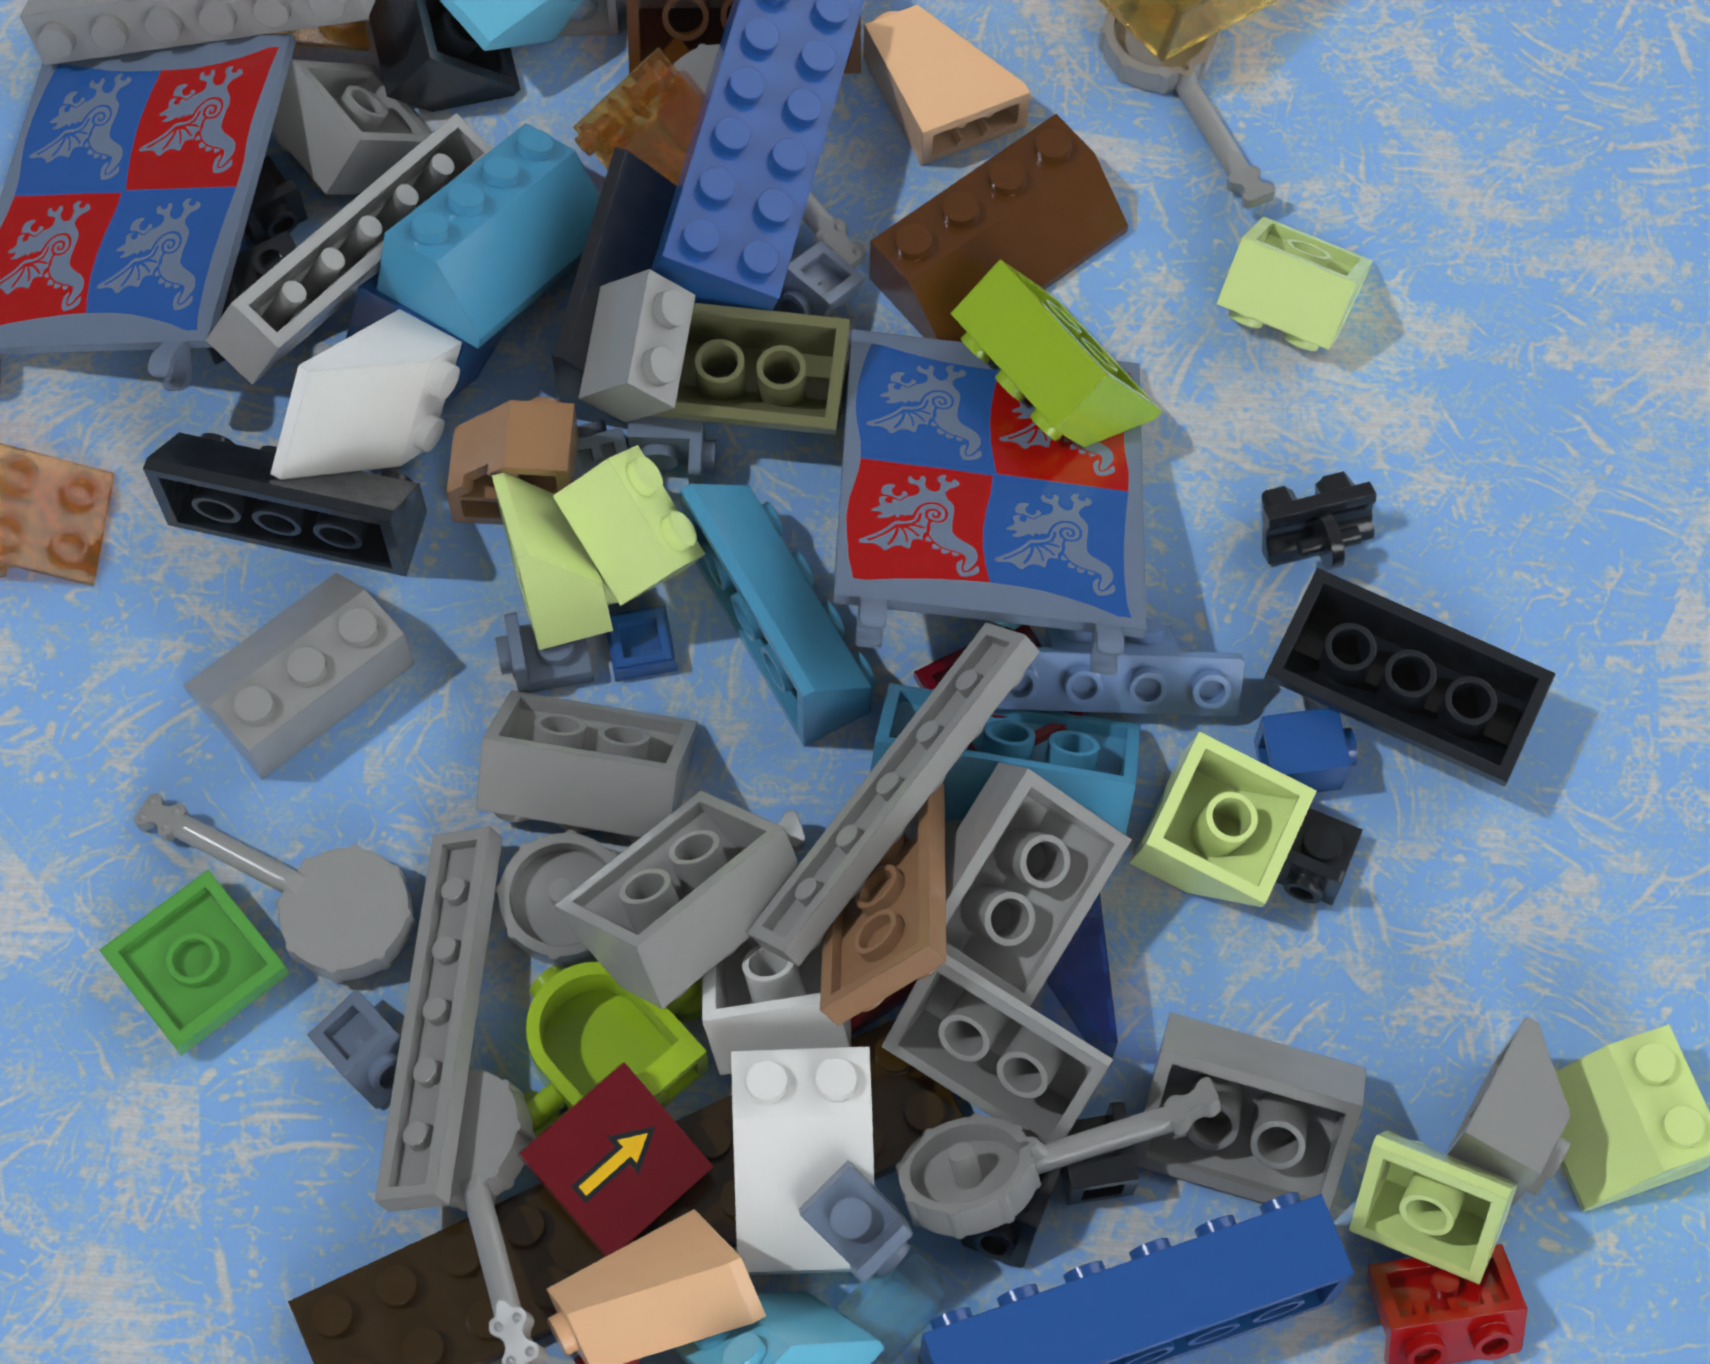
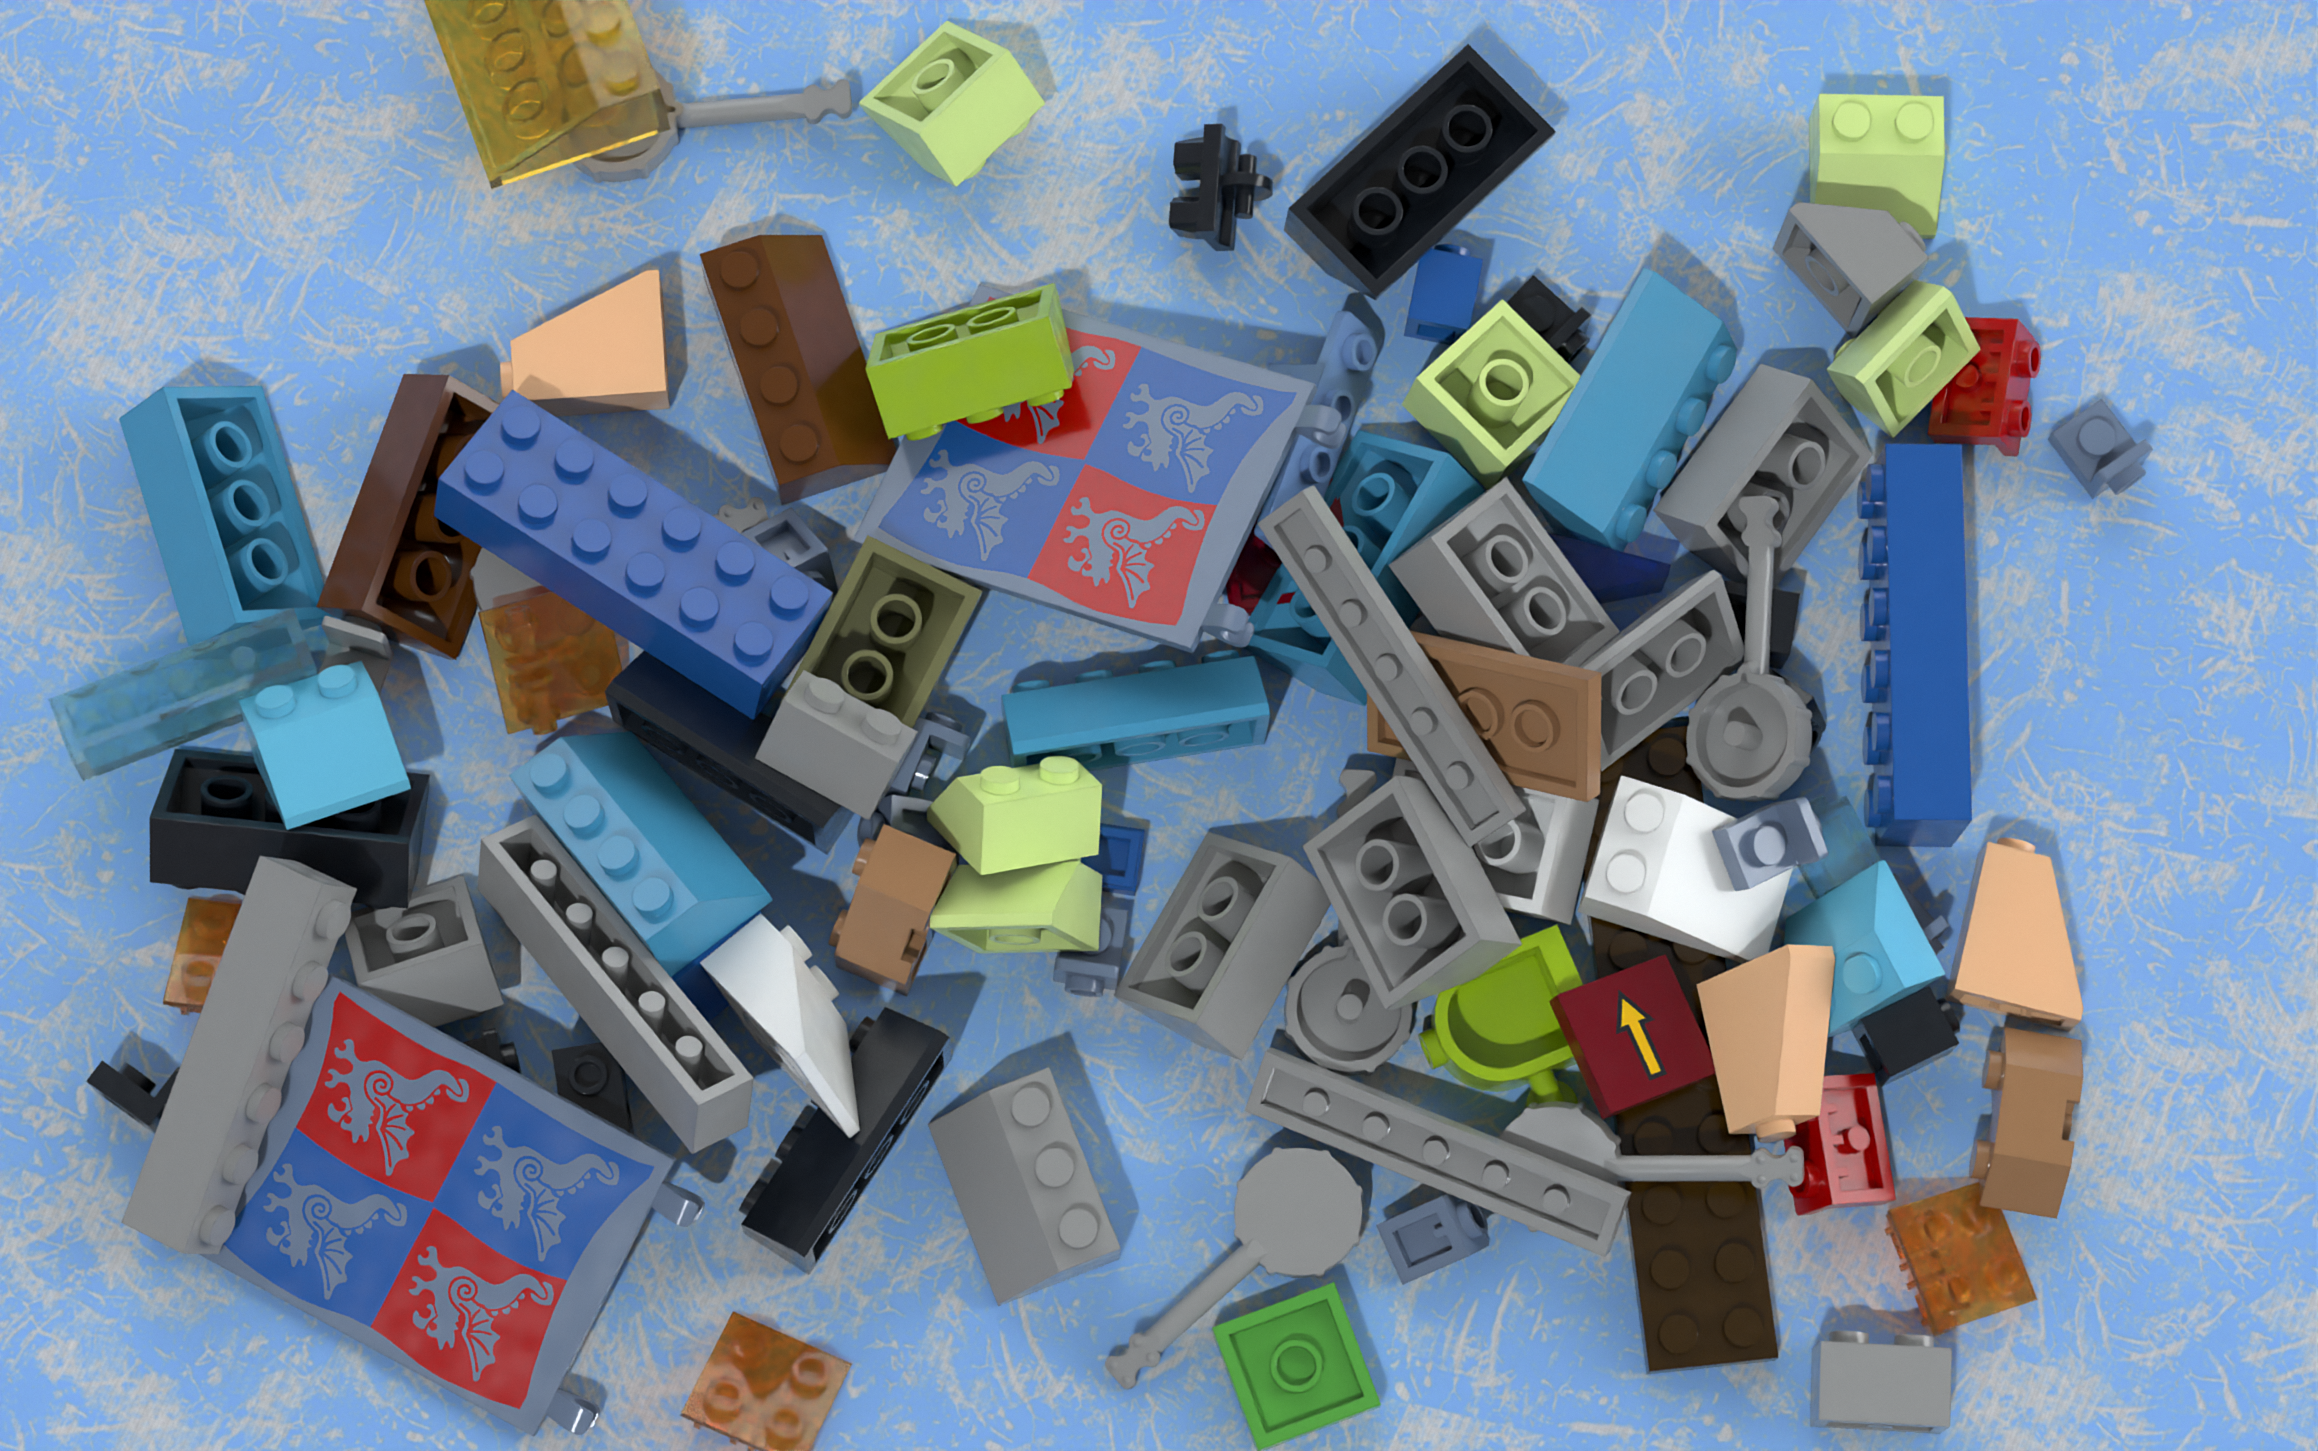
camera: 75 degrees left, 10 degrees up
(1255, 949) = (1630, 415): none -> dark azure slope

